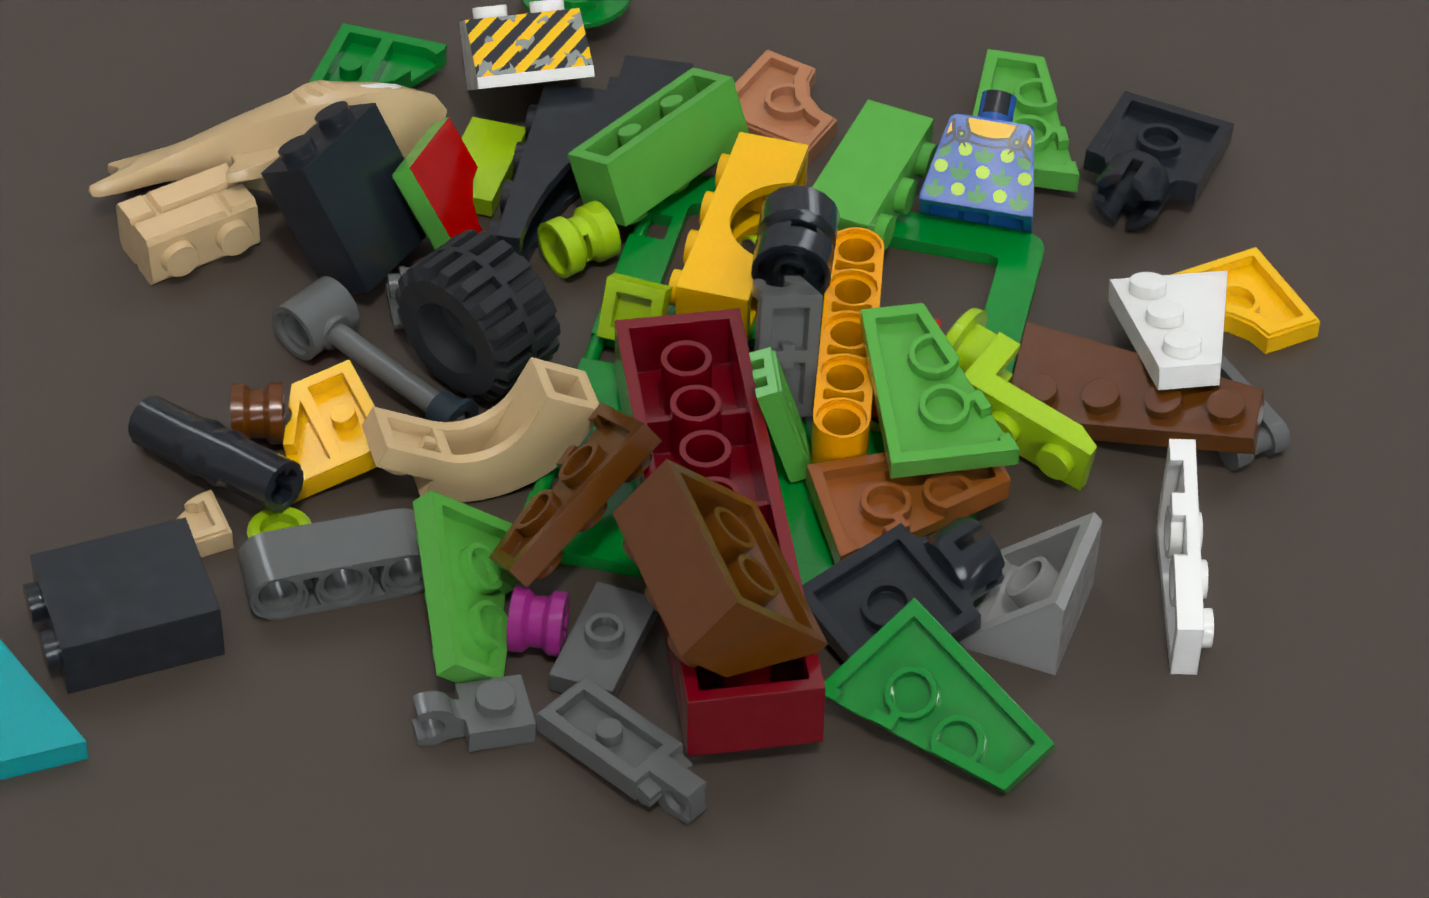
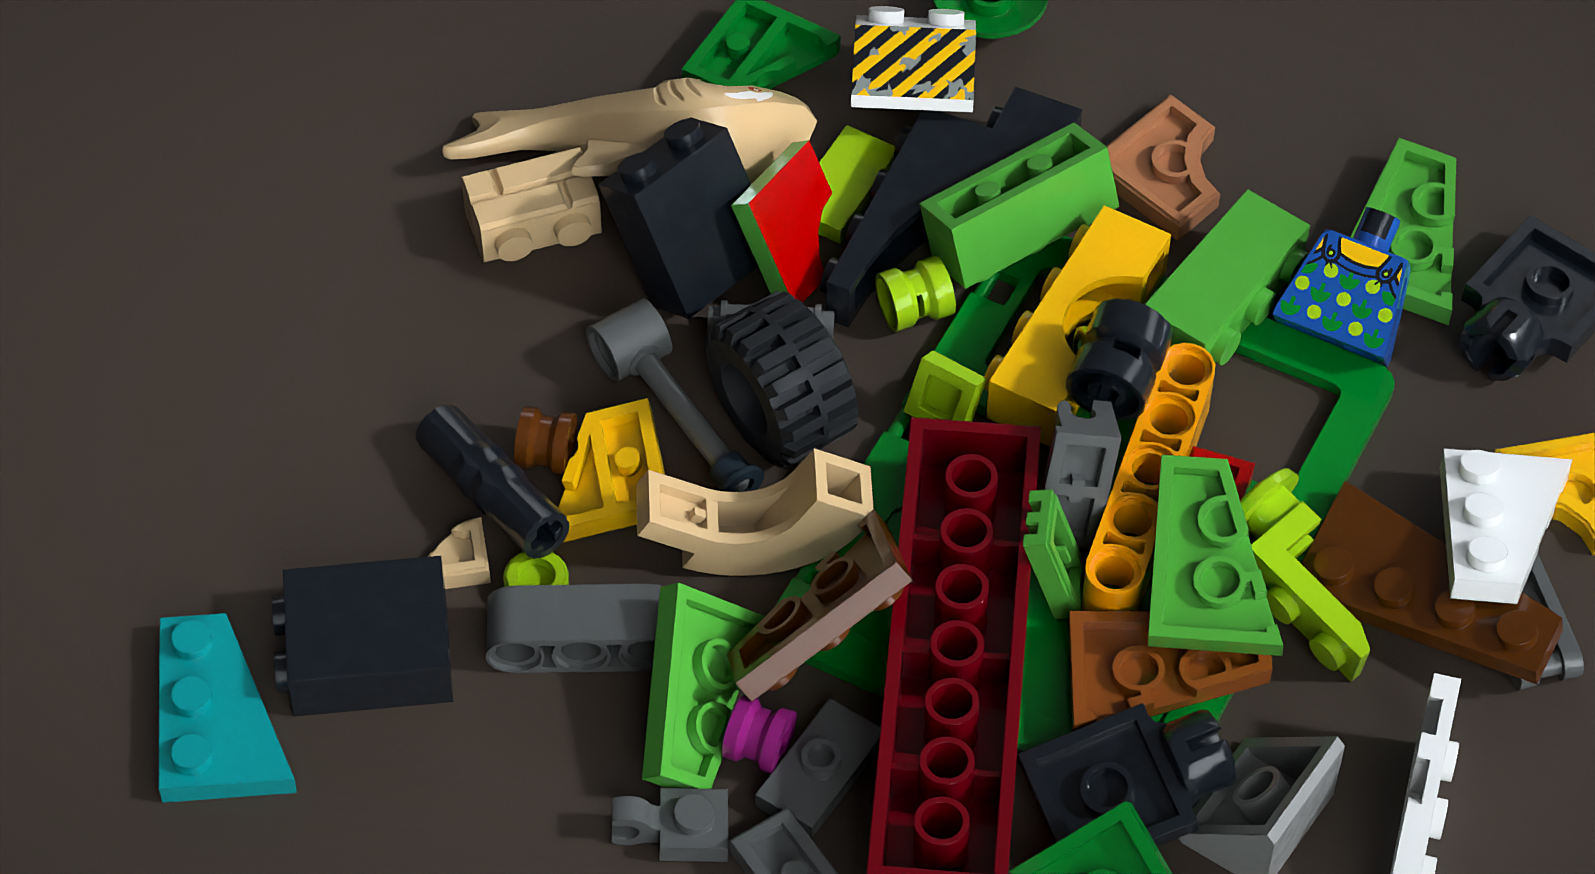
camera: 15 degrees right, 10 degrees up
(715, 574) = (928, 744): reddish brown slope -> none

